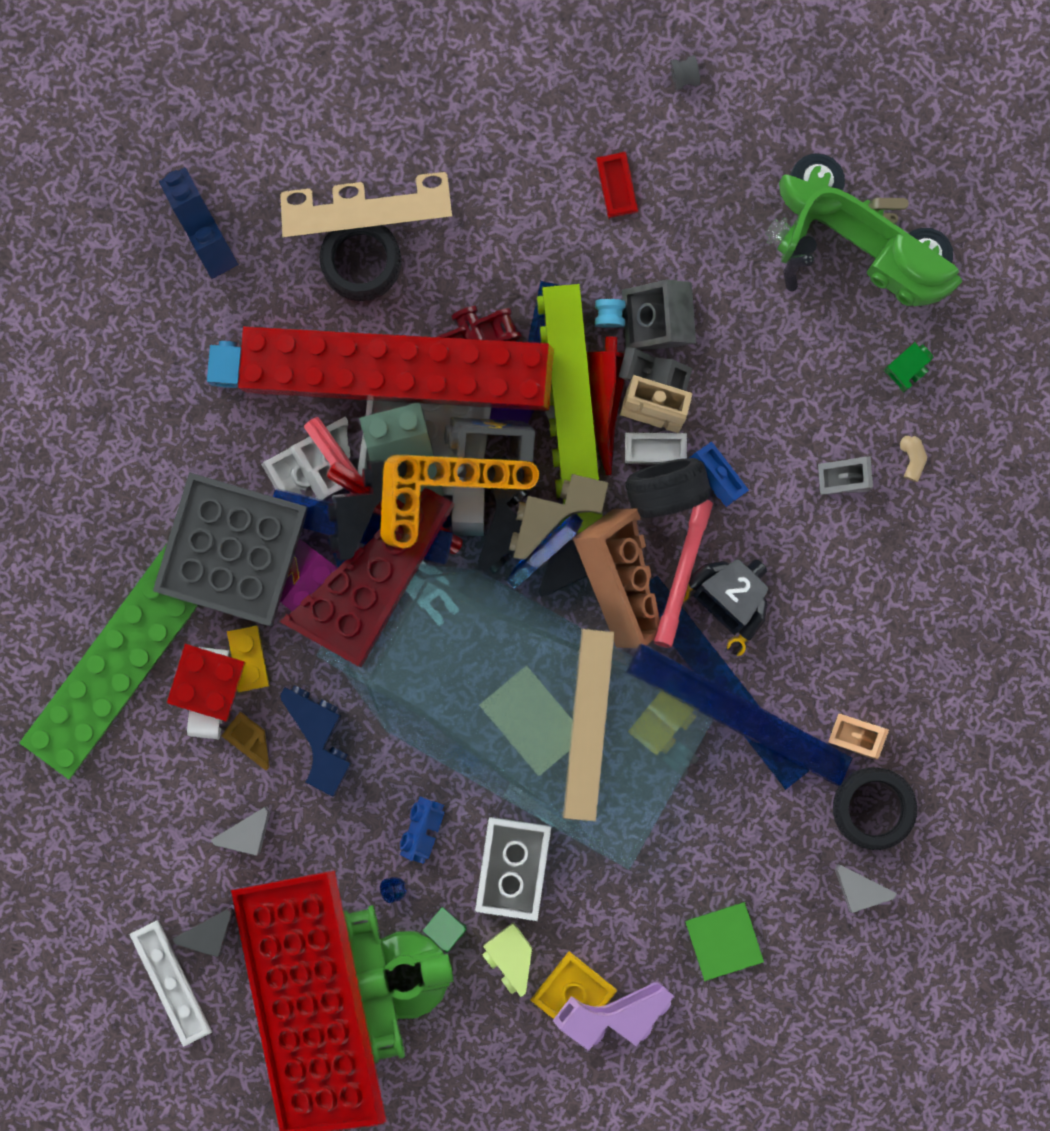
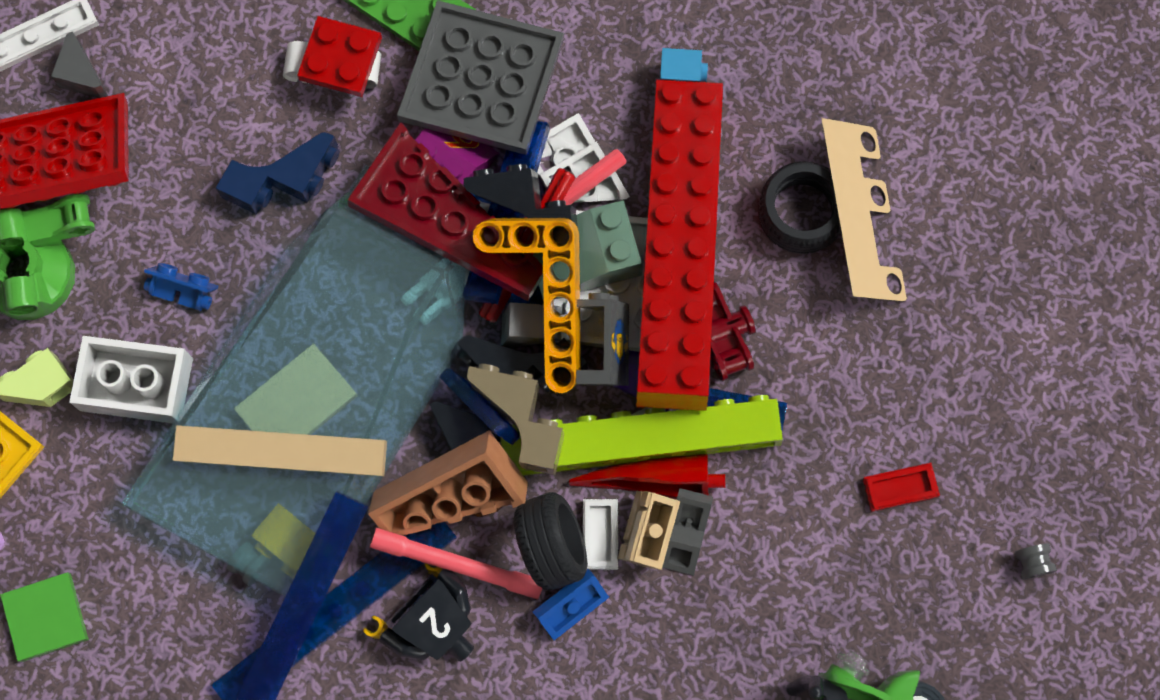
camera: 90 degrees right, 10 degrees down
(198, 222) = (844, 33): dark blue arch -> none
(246, 835) = (178, 105): light grey slope -> none
(247, 647) = (376, 105): yellow plate -> none
(249, 739) = (283, 108): pearl gold tile -> none
(387, 891) = (117, 257): clear blue hinge -> none
(445, 929) = (72, 312): slope -> none
(610, 313) = (752, 479): medium azure wheel -> none
(659, 315) = (751, 535): flat silver slope -> none

